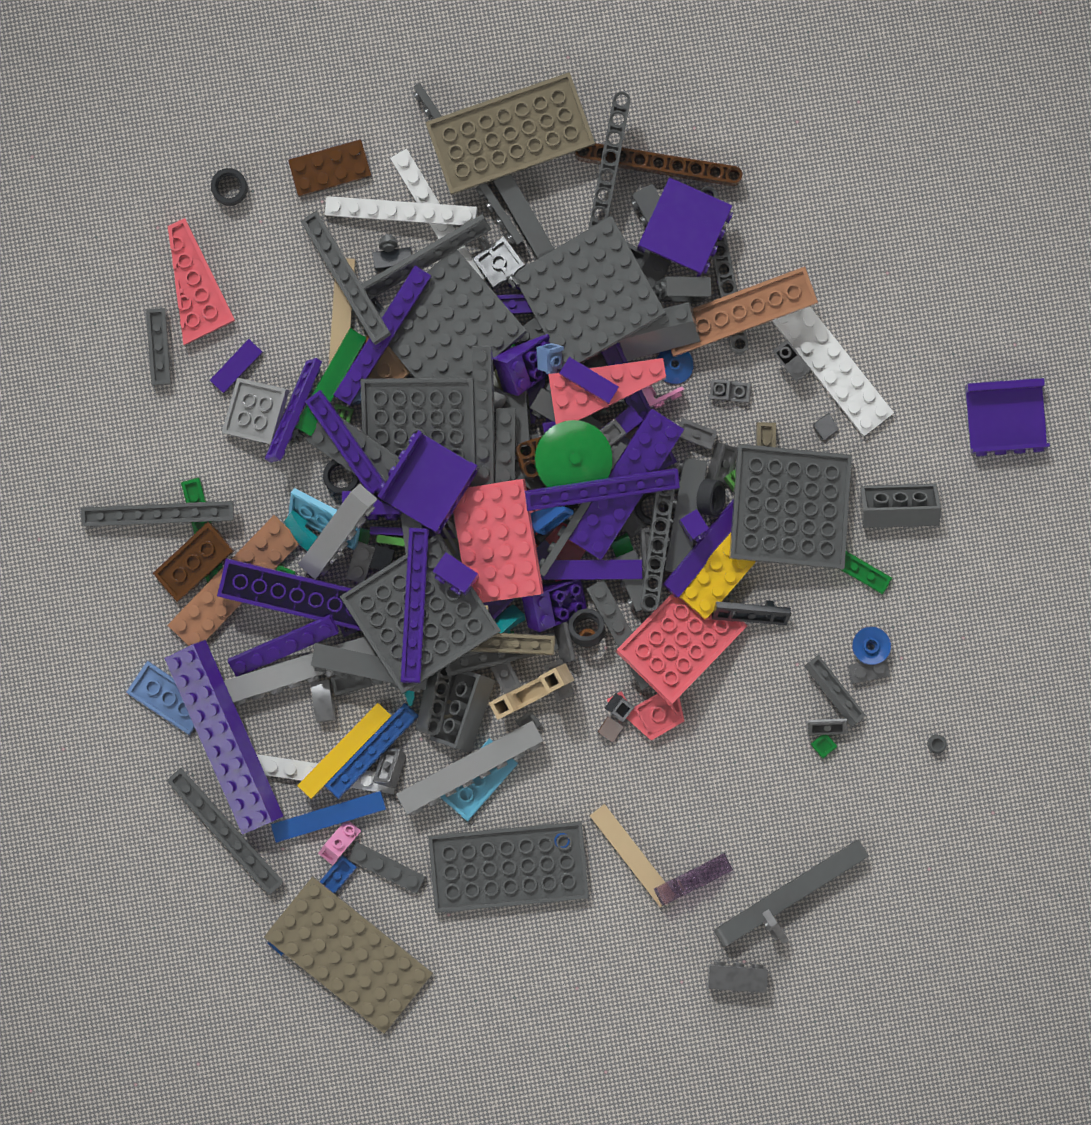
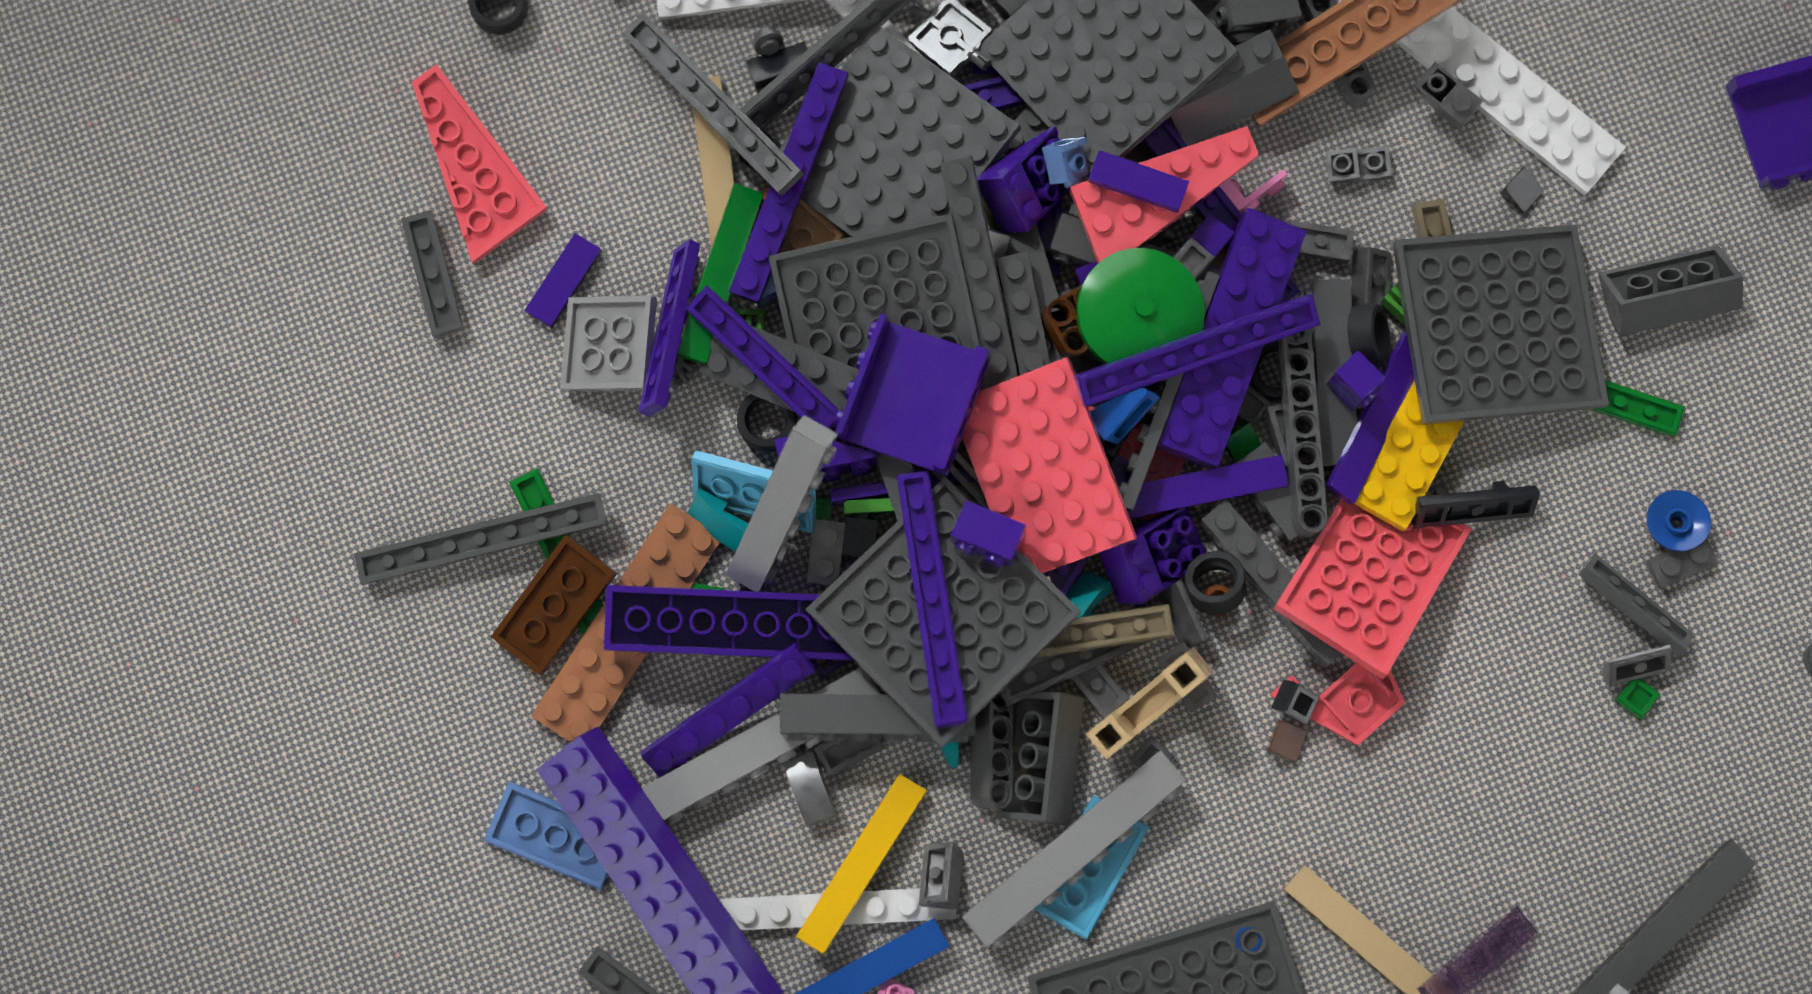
camera: 15 degrees left, 5 degrees down
(371, 751) = (905, 855): blue tile -> none
(680, 373) = (1275, 151): blue dish -> none

